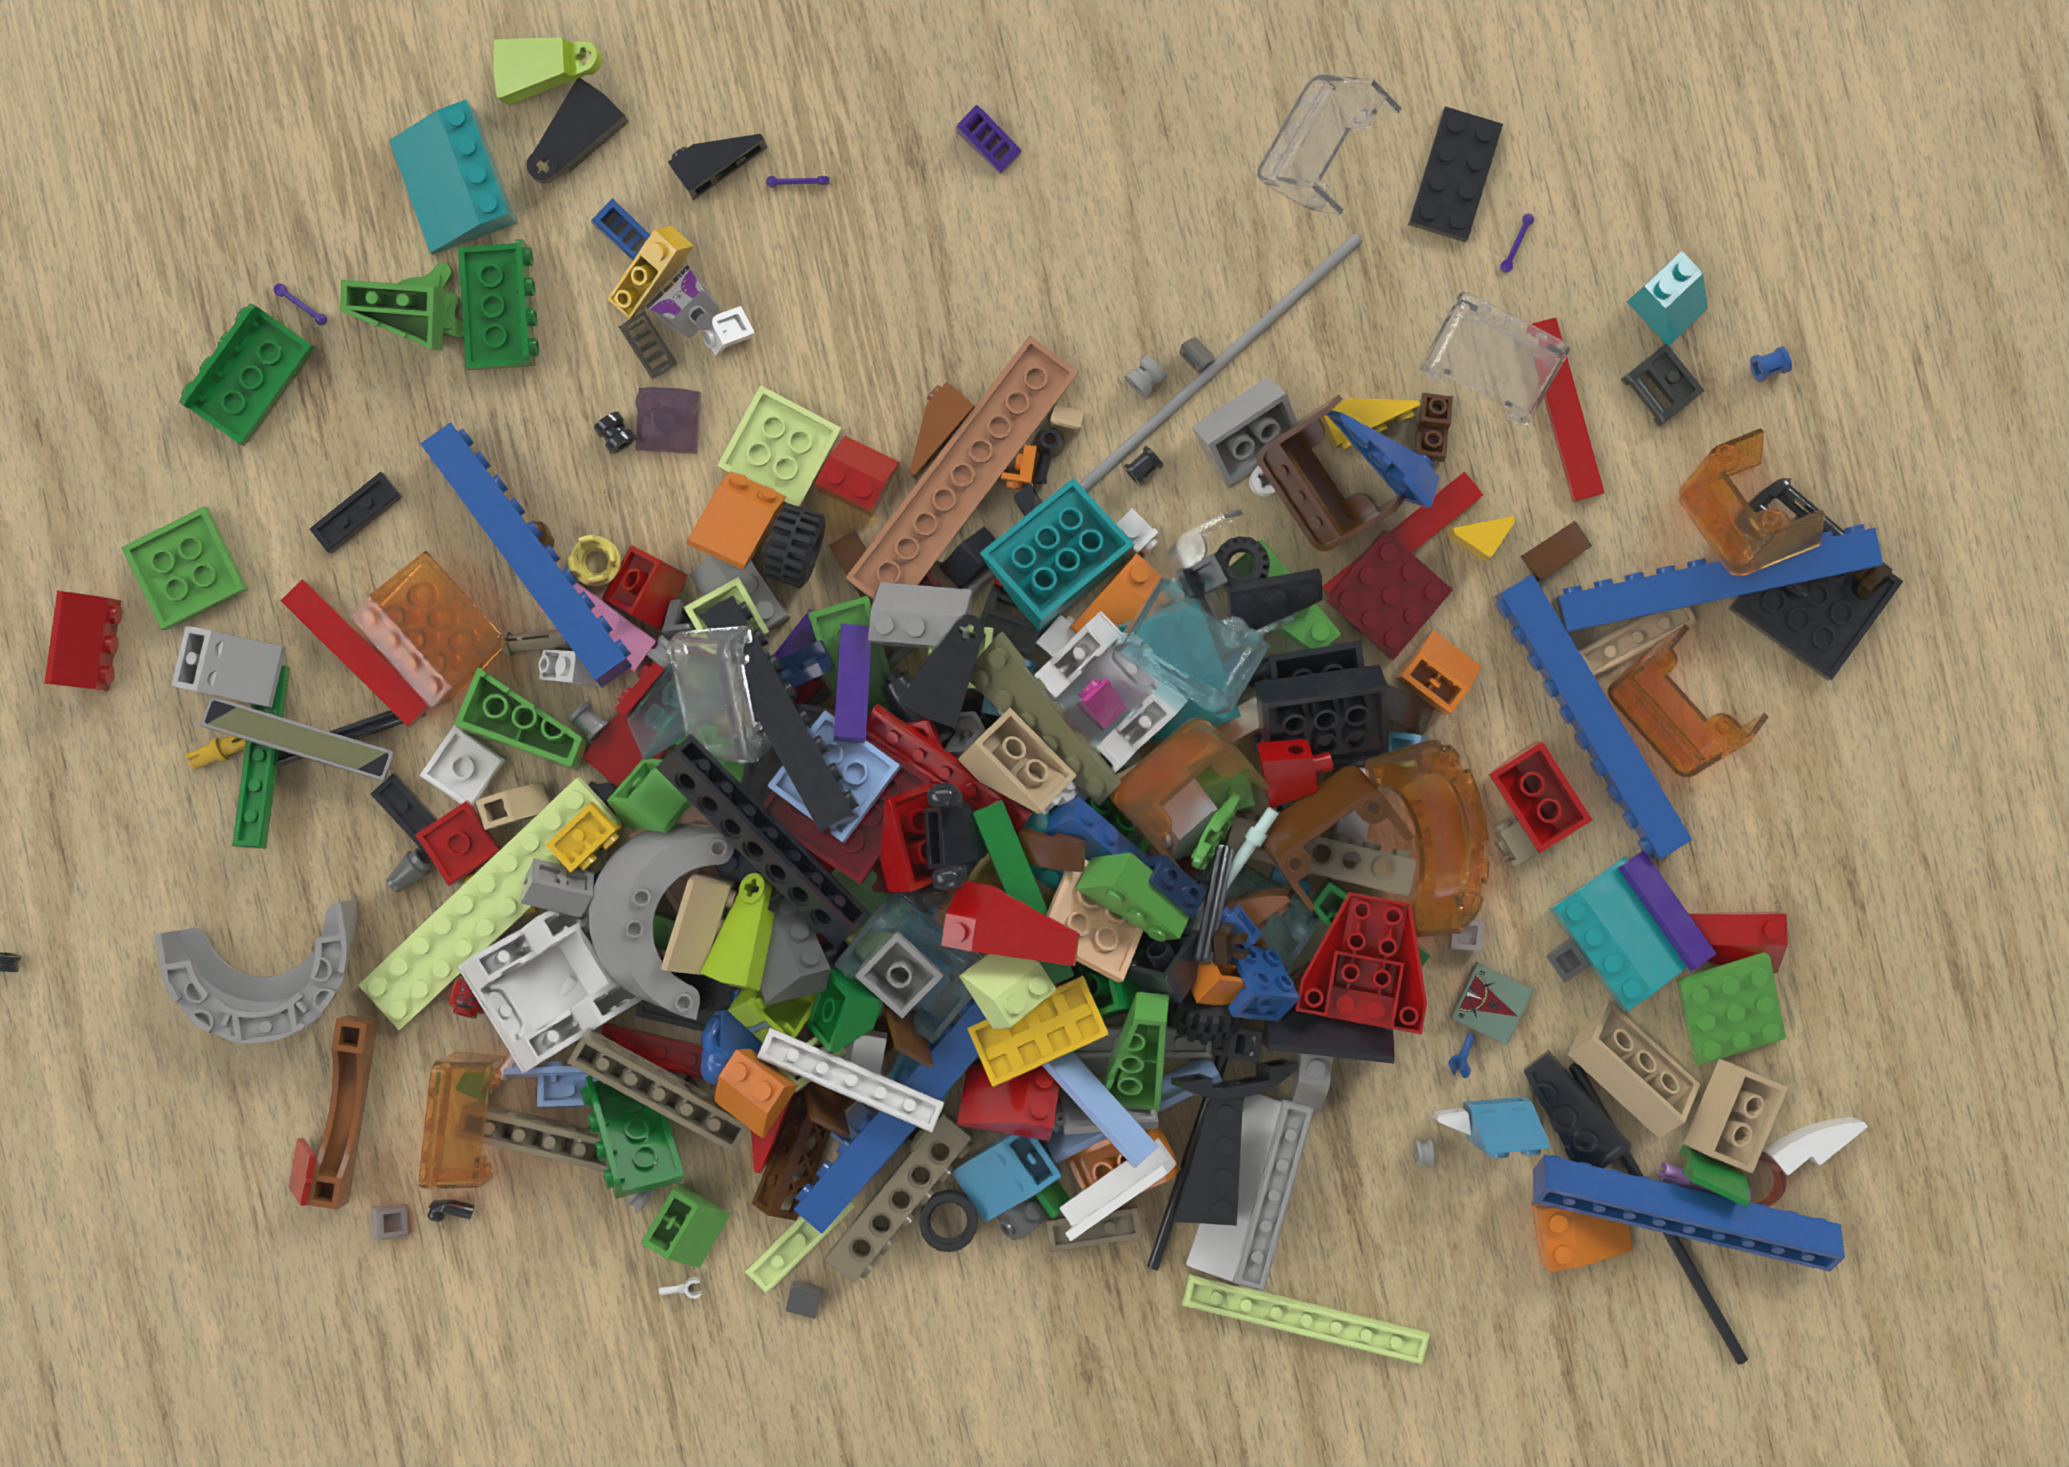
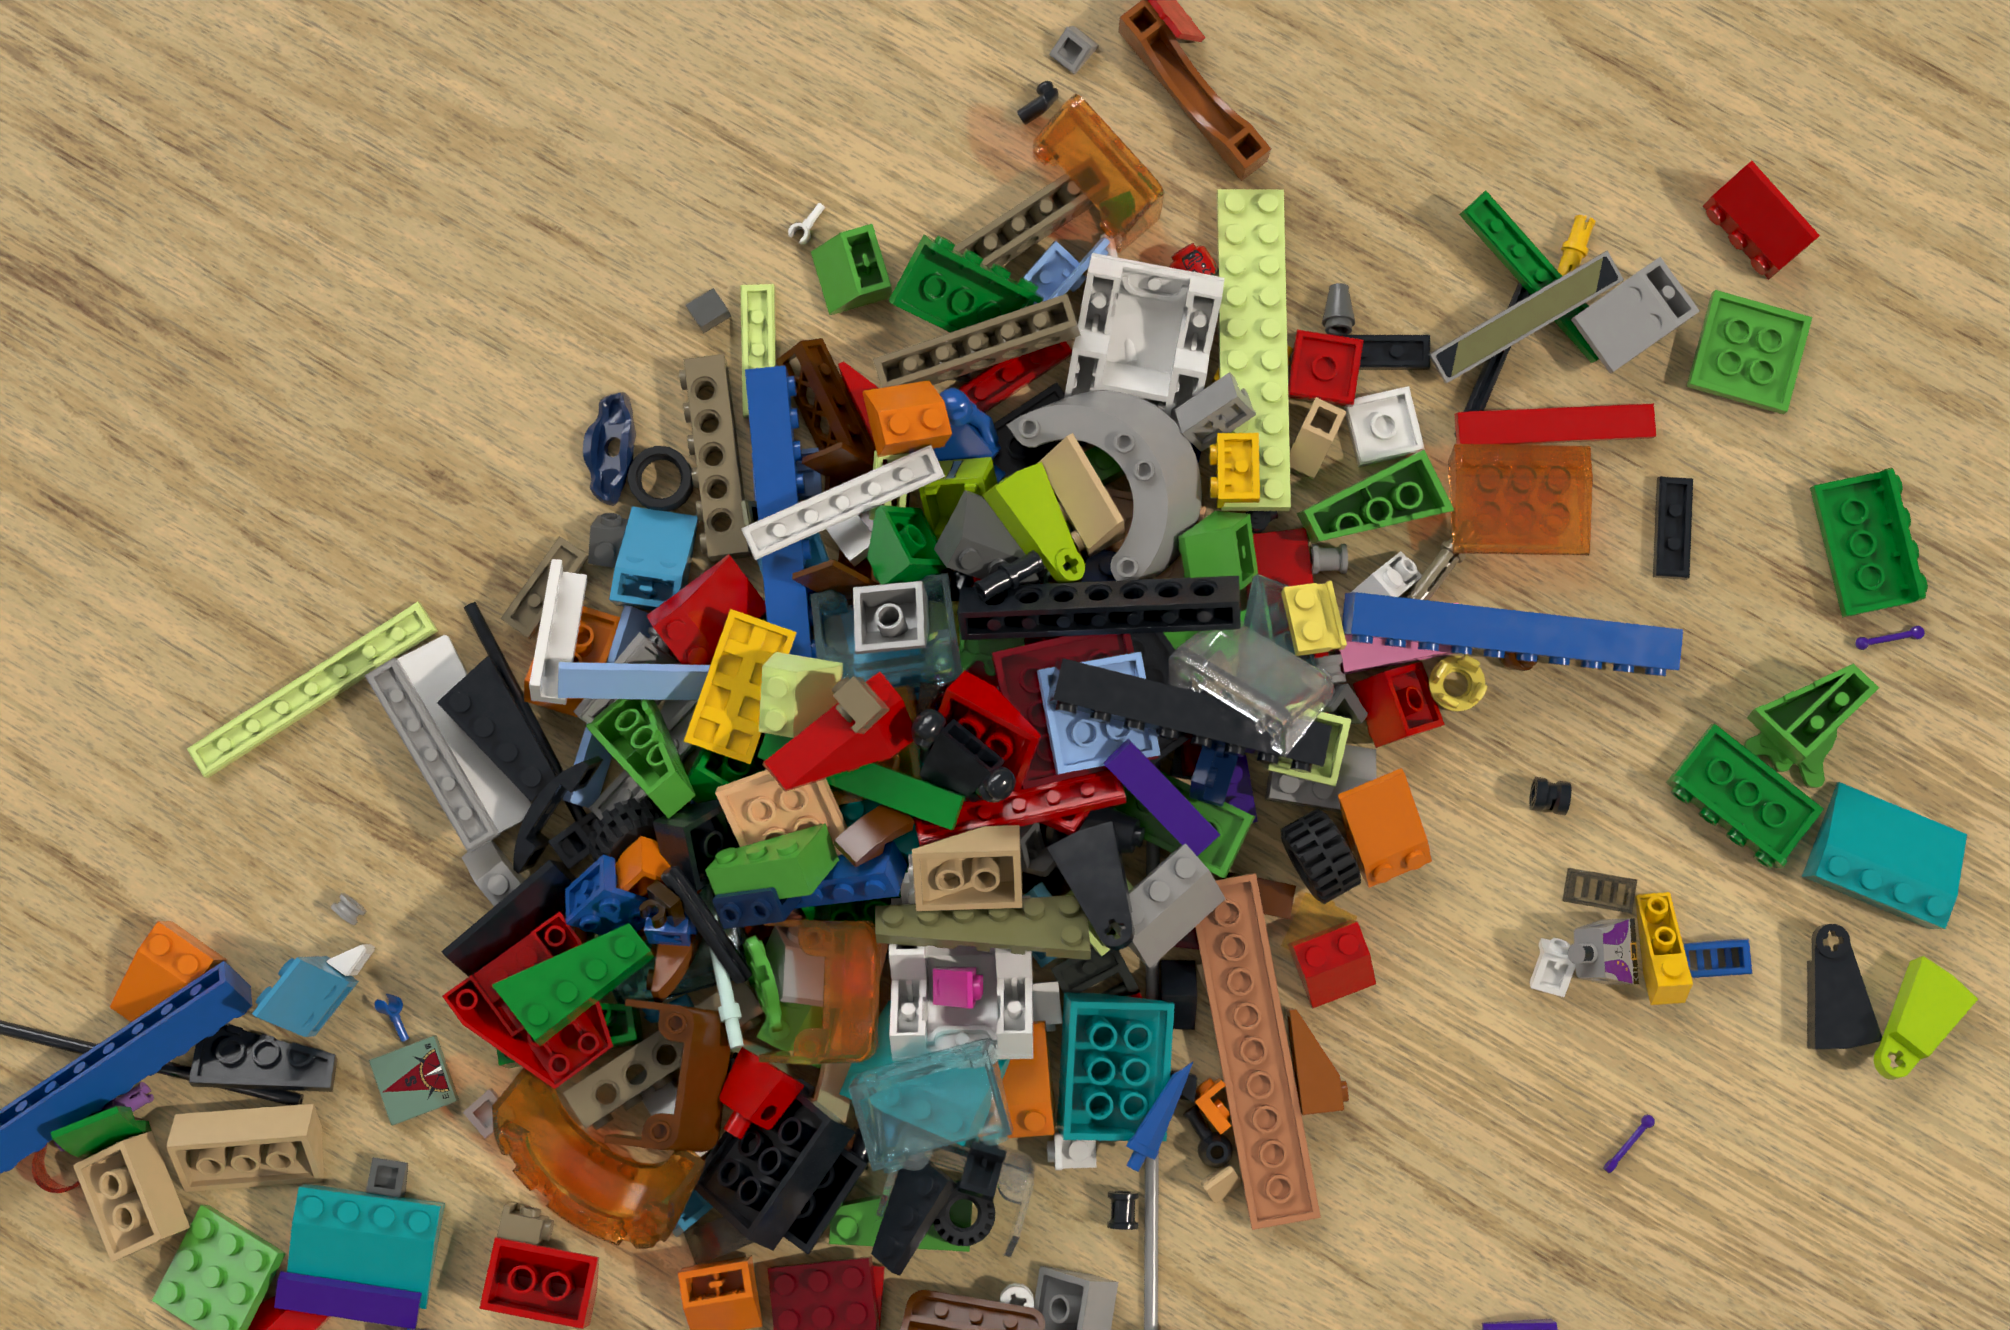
camera: 135 degrees right, 5 degrees down
(251, 1006) = (1341, 94): light grey windscreen -> none
(638, 693) = (1313, 618): none -> light yellow plate
(640, 1199) = (906, 253): light grey bush -> none
(668, 420) = (1521, 849): slope -> none
(710, 162) = (1710, 1083): black slope -> none
(780, 446) = (1415, 922): yellowish green plate -> none
(797, 921) = (1008, 576): none -> black pin
(976, 938) = (858, 703): none -> dark tan brick
(977, 1261) = (612, 423): none -> dark blue piece
(1053, 1198) = (598, 577): green slope -> none
(1072, 493) = (1152, 1130): none -> blue bar
(1145, 376) = (1196, 1283): light grey wheel -> none
(1335, 957) = (567, 985): none -> green wedge
(1813, 1143) = (48, 1240): white slope -> none

